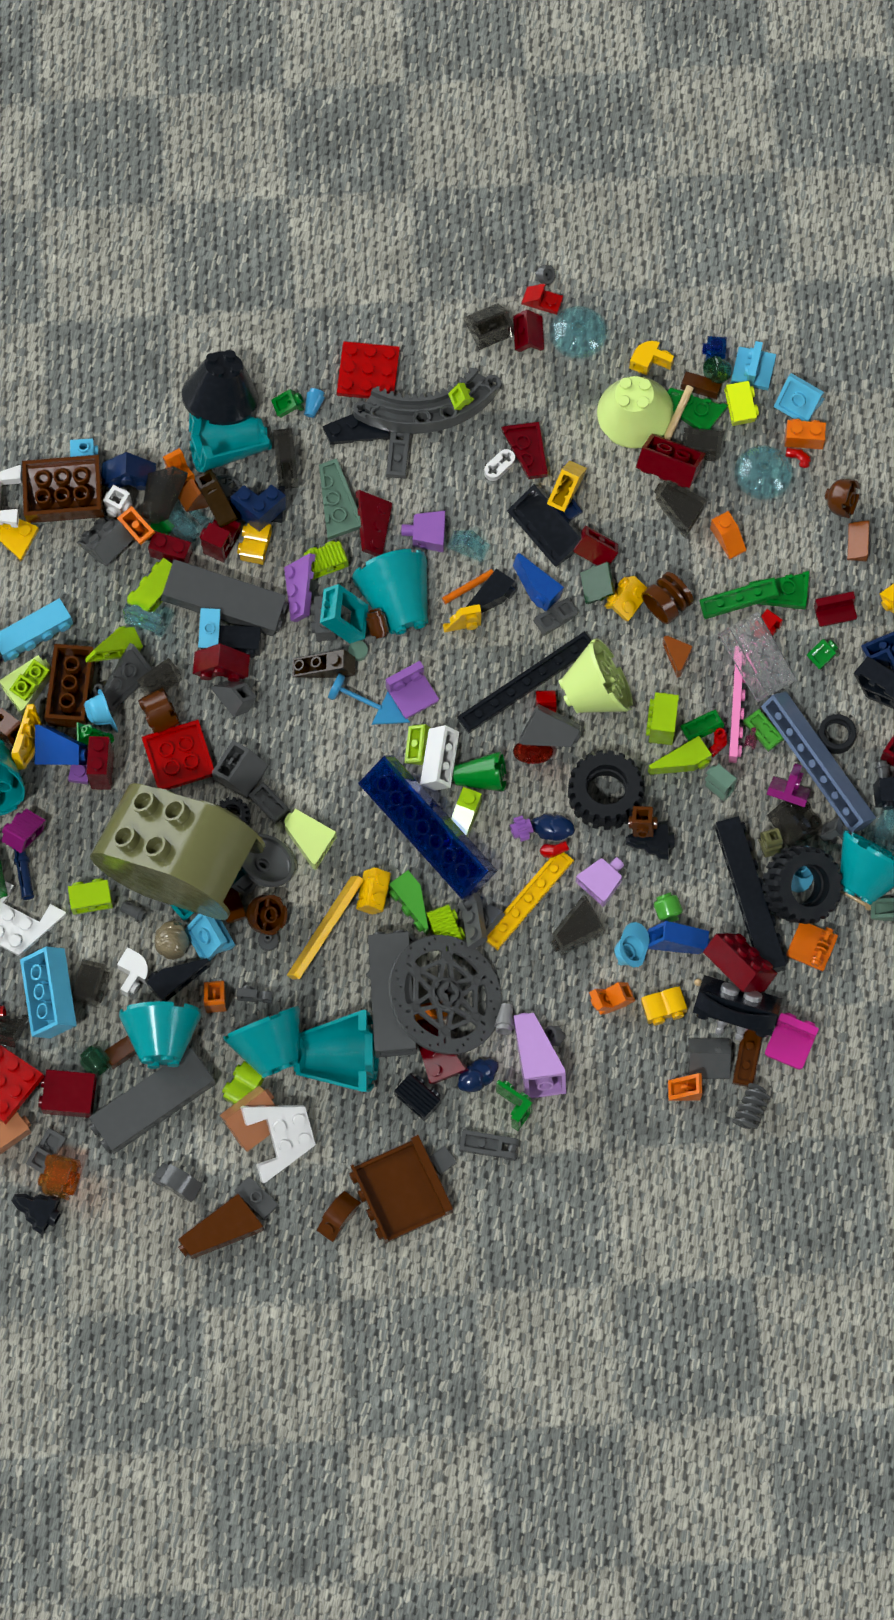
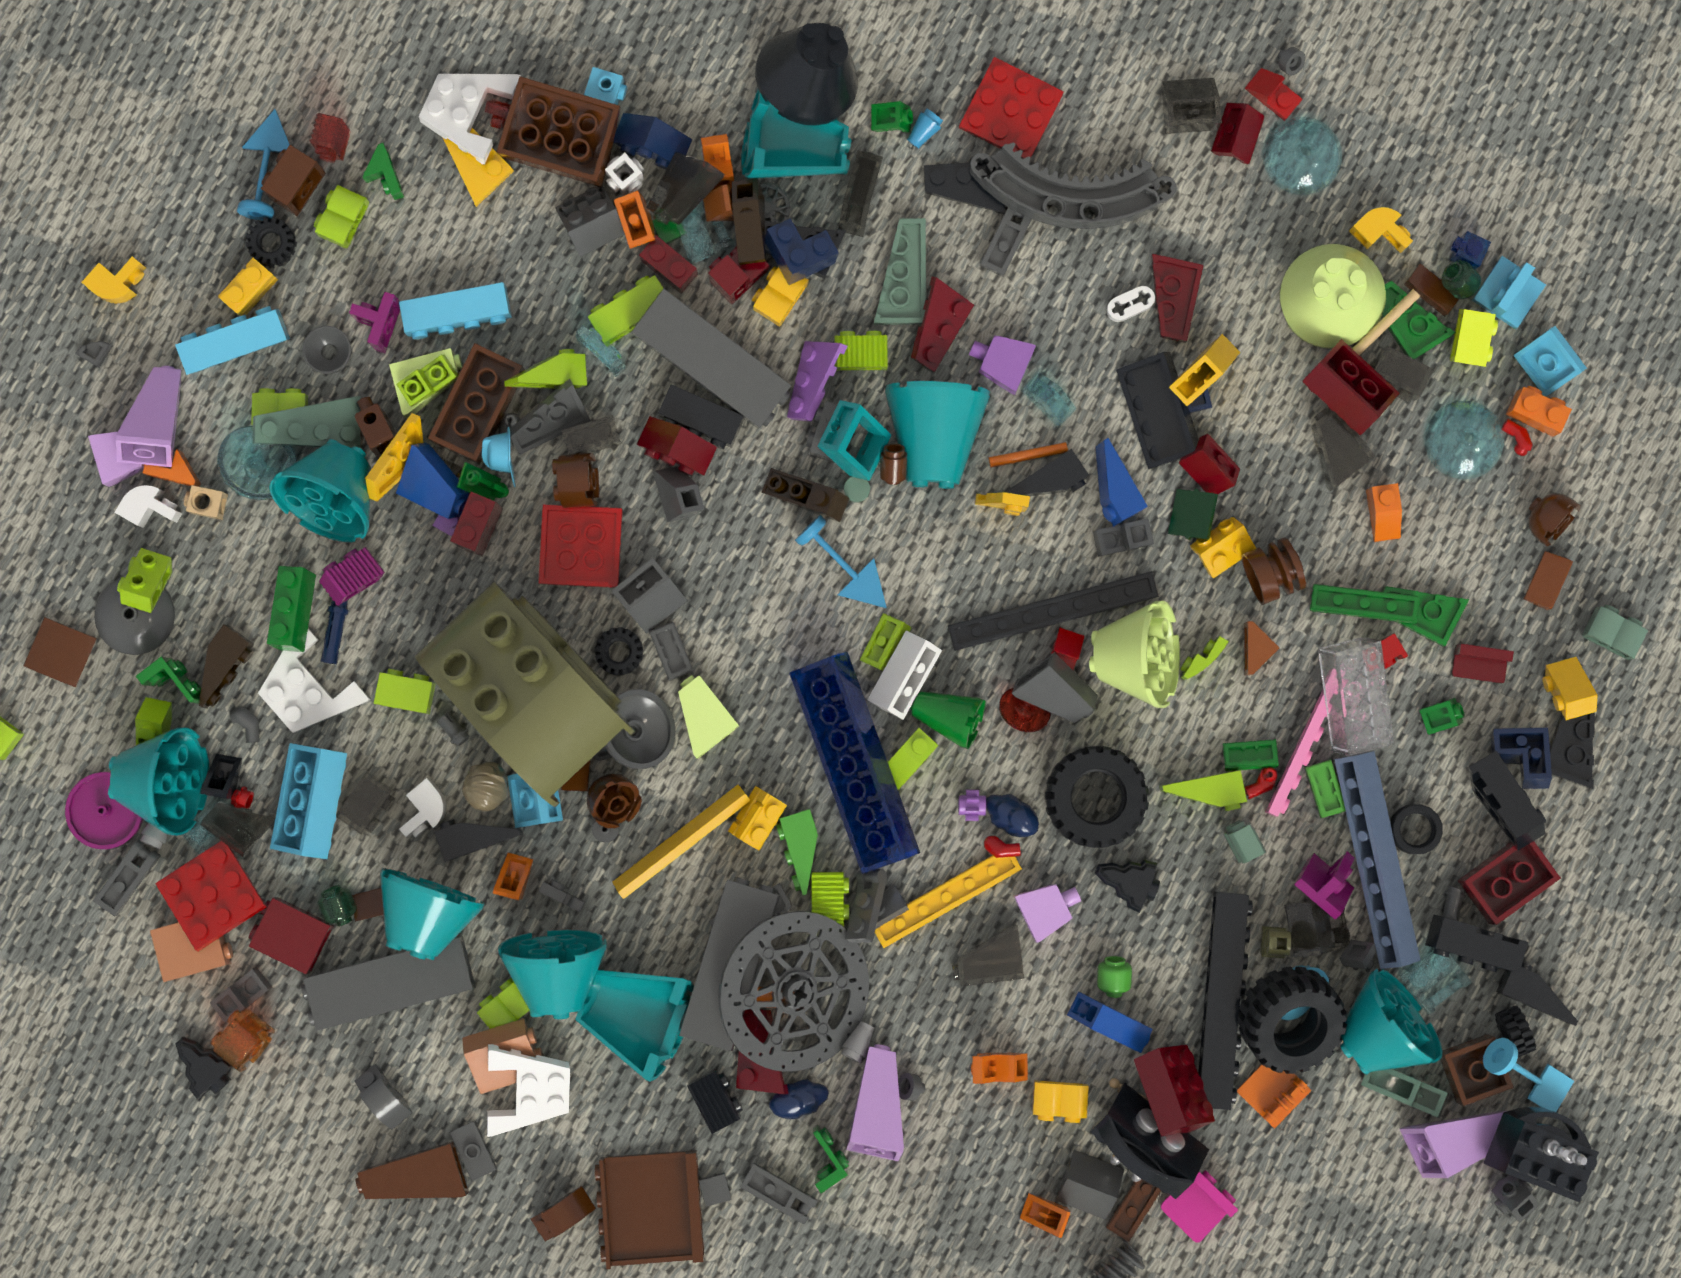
camera: 15 degrees right, 15 degrees up
(16, 492) = (499, 111): none -> clear red tile
(209, 627) = (677, 396): medium azure plate -> none
(411, 690) = (903, 571): medium lavender bracket -> none
(460, 396) = (1113, 198): lime tile -> none
(632, 945) = (1051, 1011): medium azure piece -> none
(643, 676) = (1197, 663): none -> lime slope
(643, 821) = (1125, 853): reddish brown brick -> none
(662, 718) = (1204, 731): lime brick -> none
(751, 740) = (1304, 796): clear pink hand -> none

